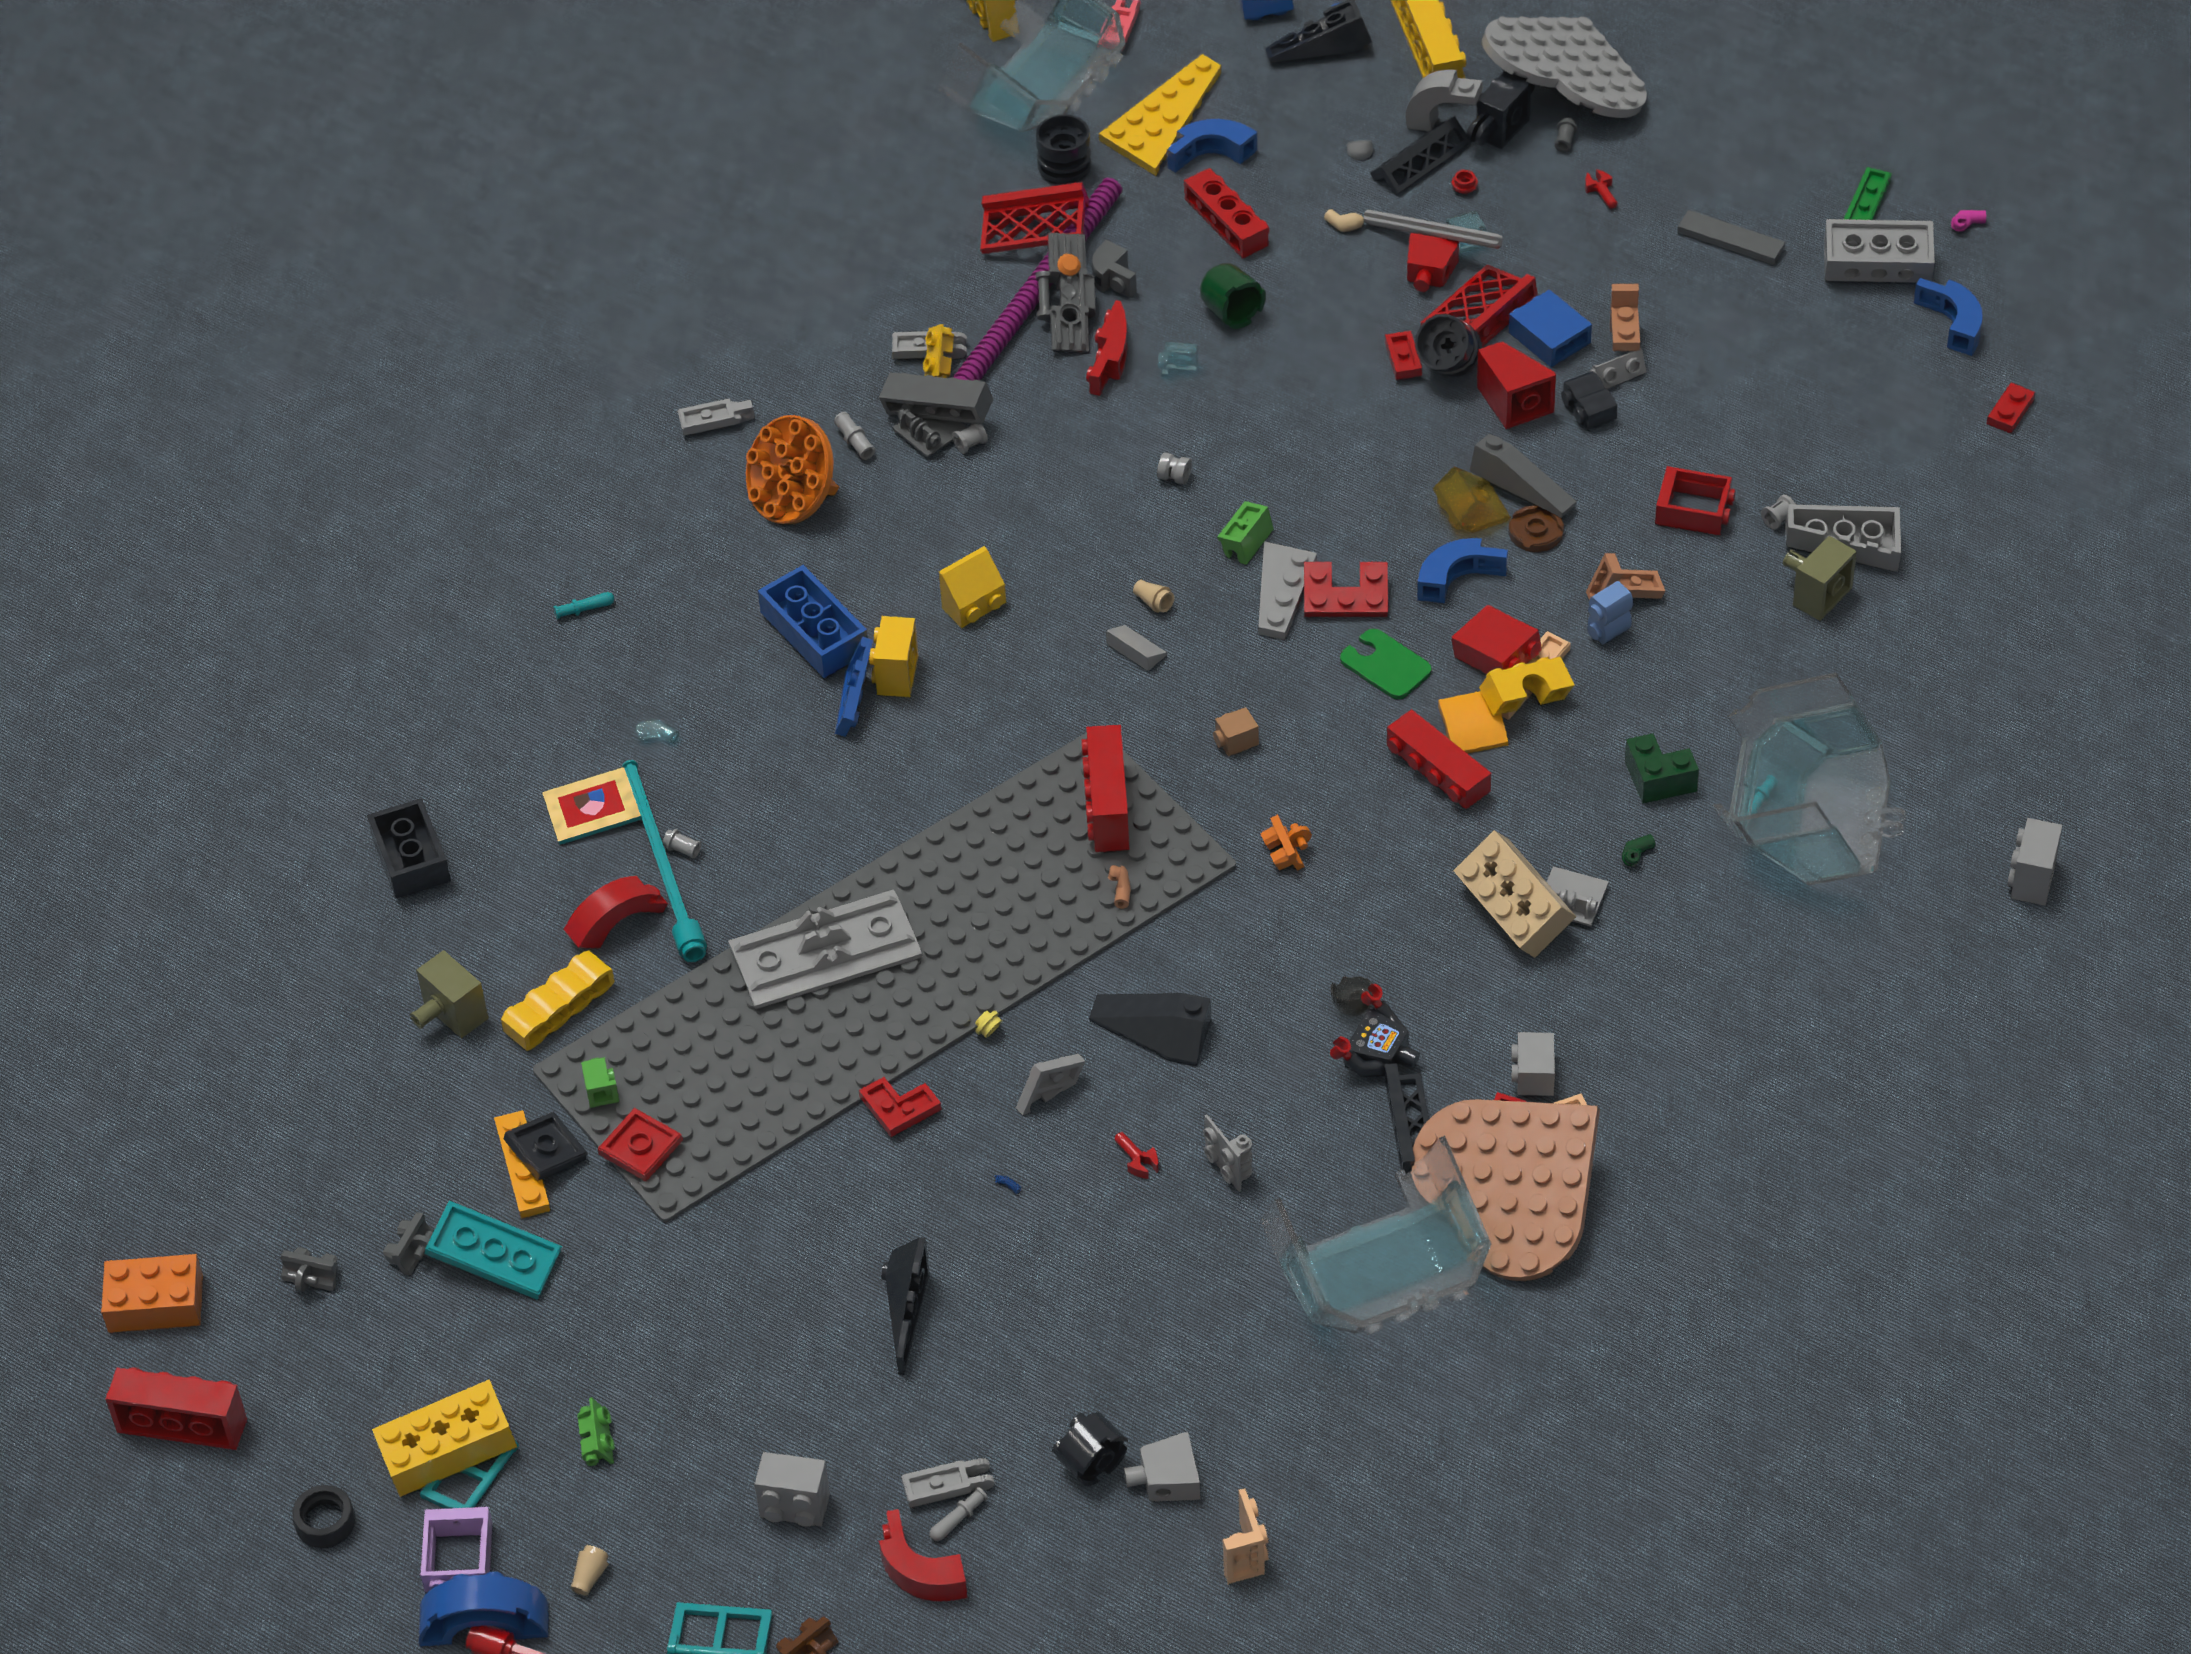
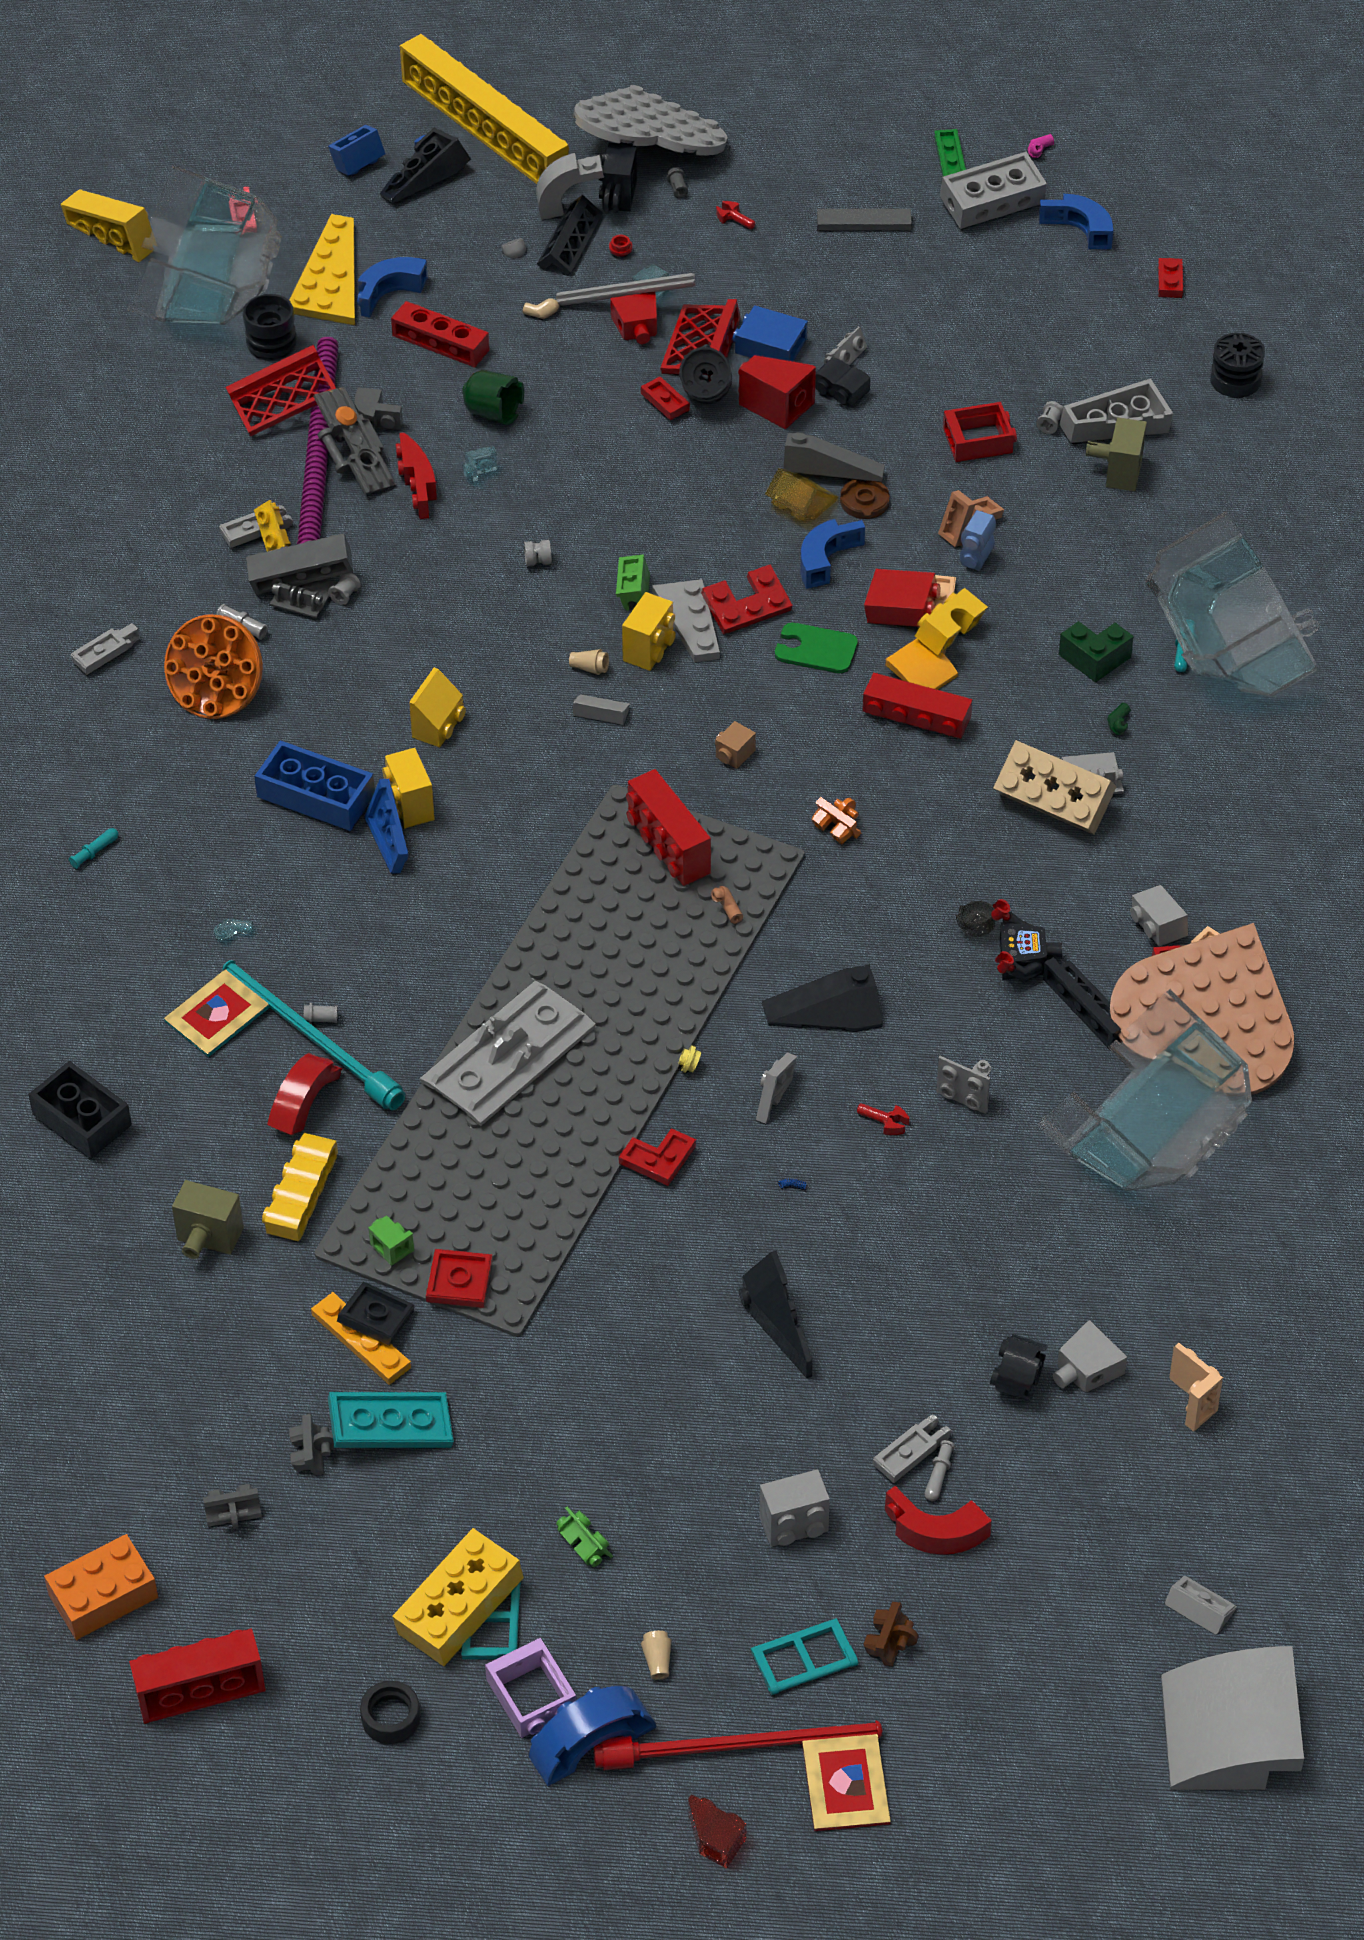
camera: 30 degrees left, 0 degrees up
(1222, 585) = (648, 631): none -> yellow brick
(1625, 317) = (830, 308): nougat bracket -> none
(2009, 525) = (1237, 365): none -> black wheel

